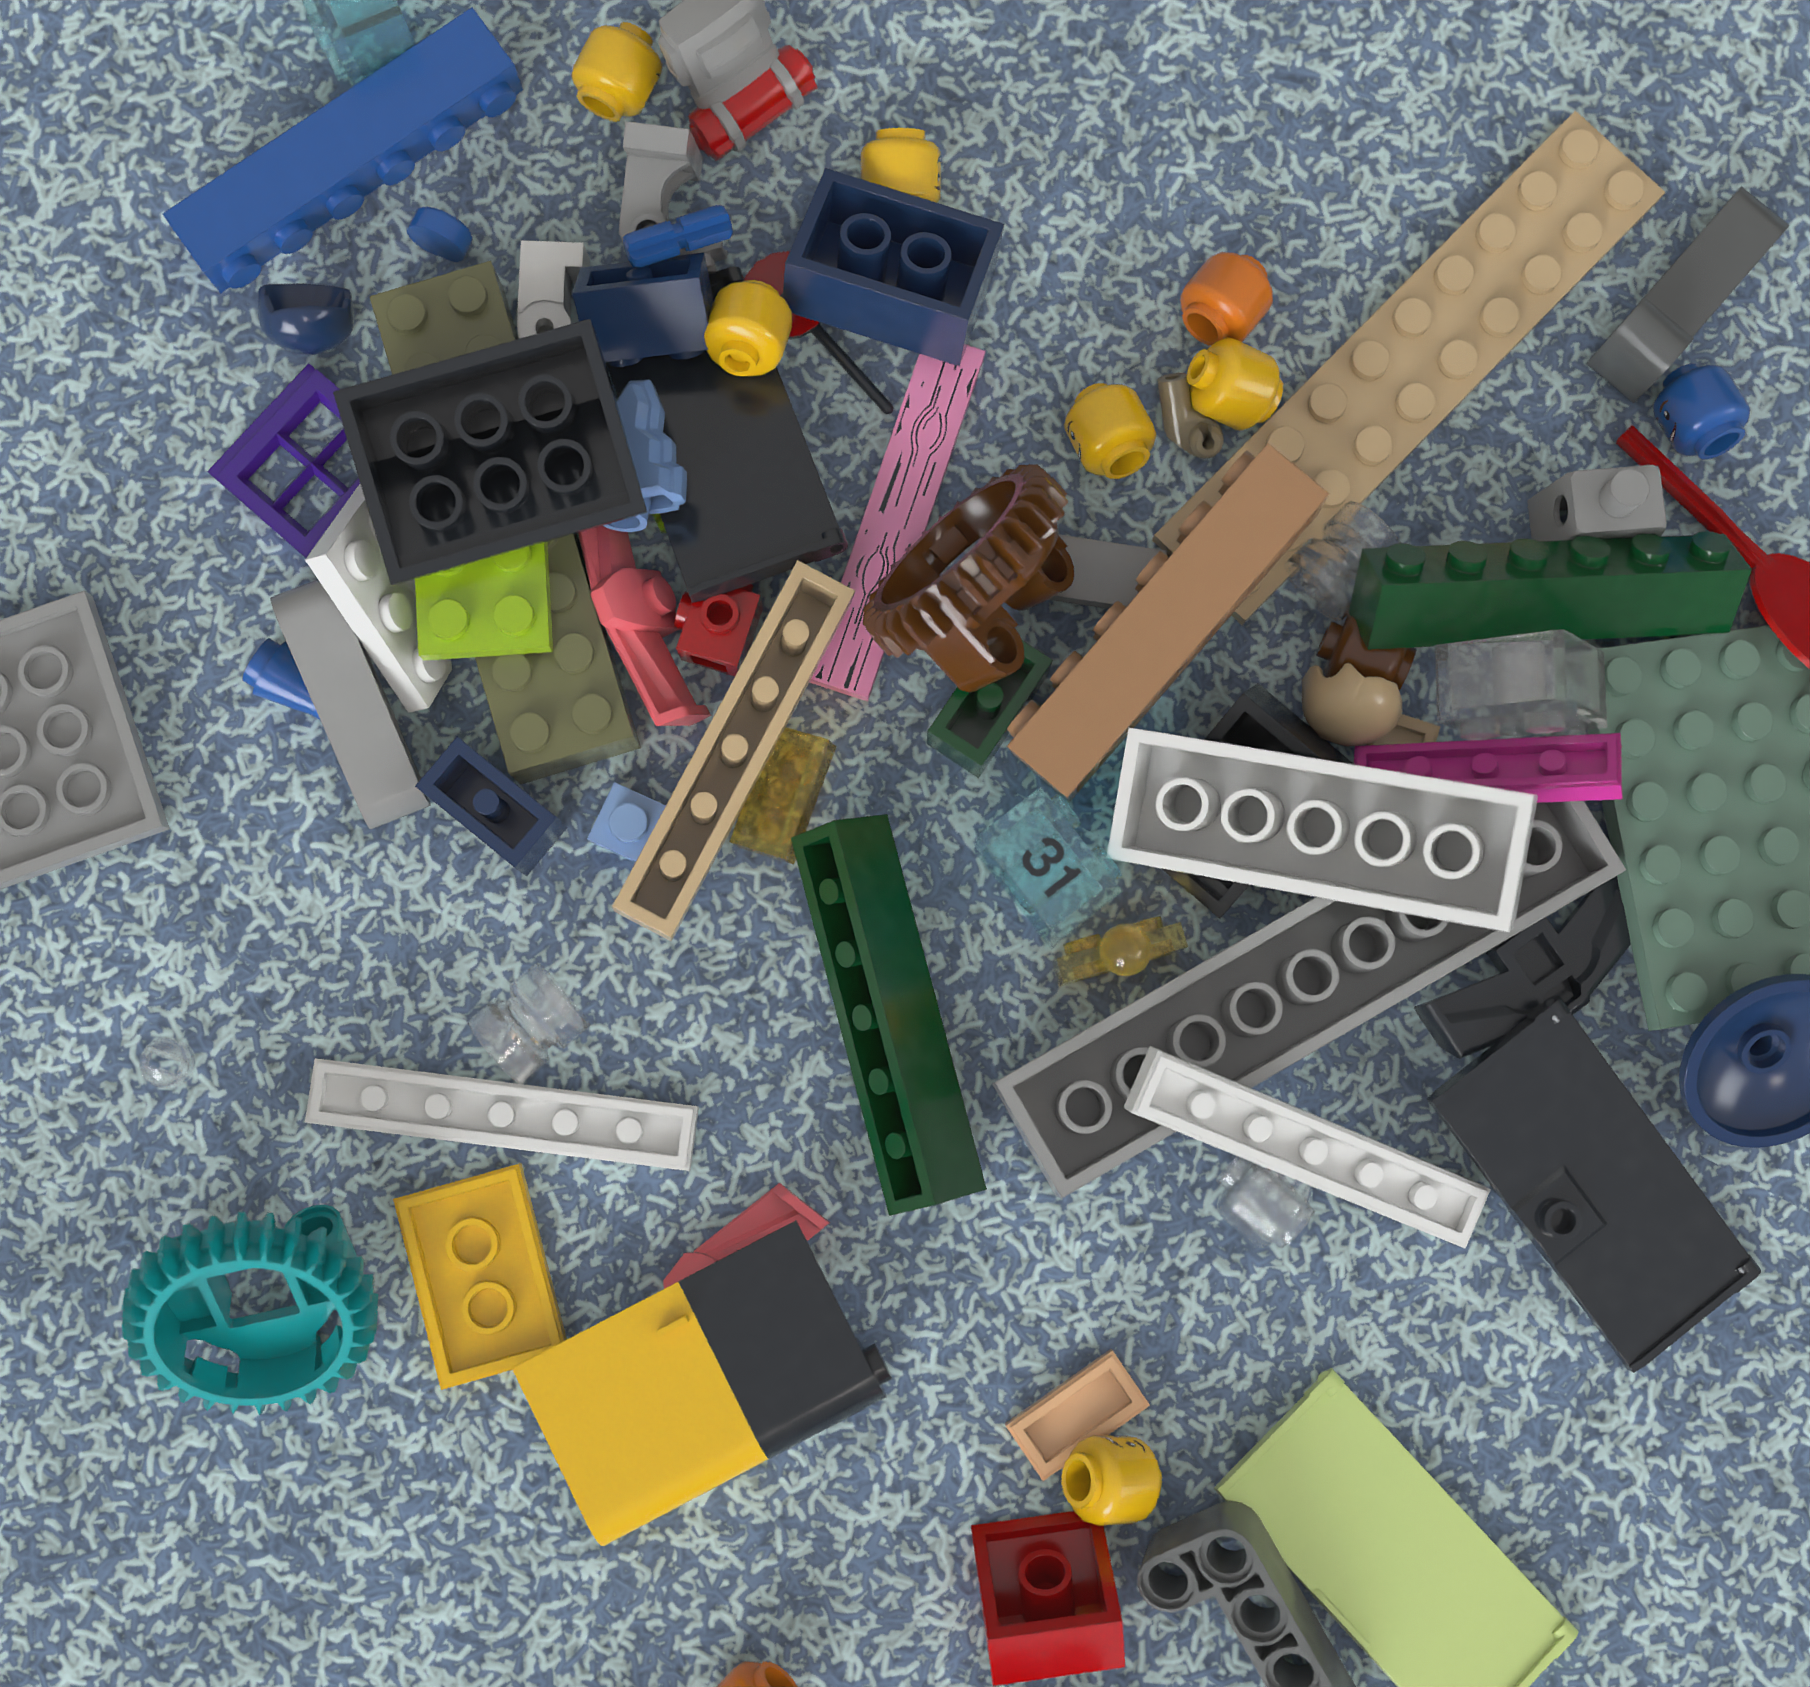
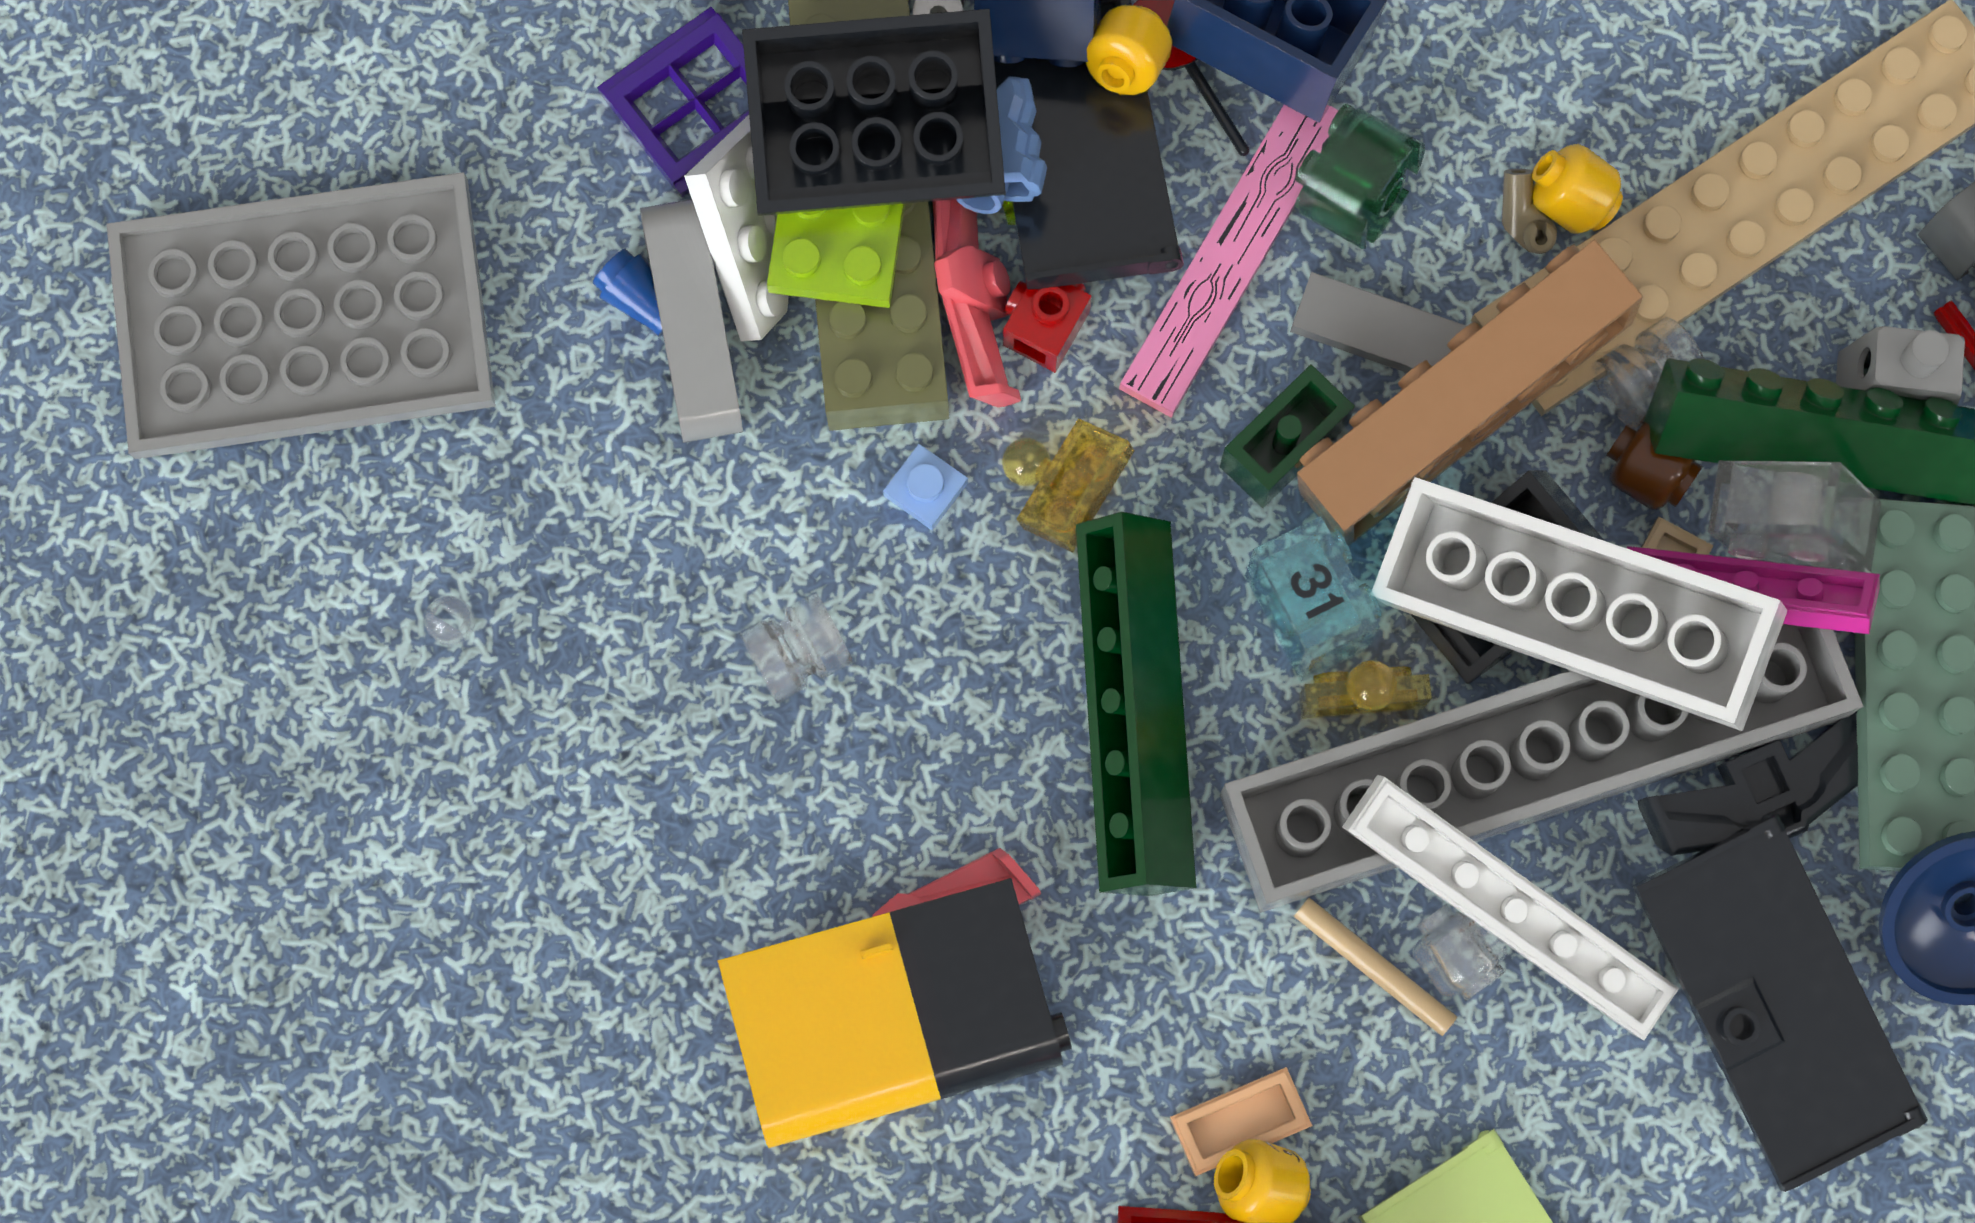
camera: 15 degrees right, 5 degrees down
(187, 1296) = (500, 903): teal piece -> none
(480, 1274) = (700, 873): yellow tile -> none
(491, 806) = (802, 441): dark blue brick -> none
(502, 1114) = (752, 731): white tile -> none
(733, 751) = (1038, 432): tan brick -> none
(961, 612) = (1294, 311): reddish brown piece -> none
(1009, 411) = (1357, 176): none -> clear green brick
(1110, 430) = (1450, 209): yellow head -> none
(1183, 1228) = (1375, 966): none -> tan bar
(1226, 298) = (1584, 108): orange head -> none
(1350, 706) = (1629, 506): tan hair -> none

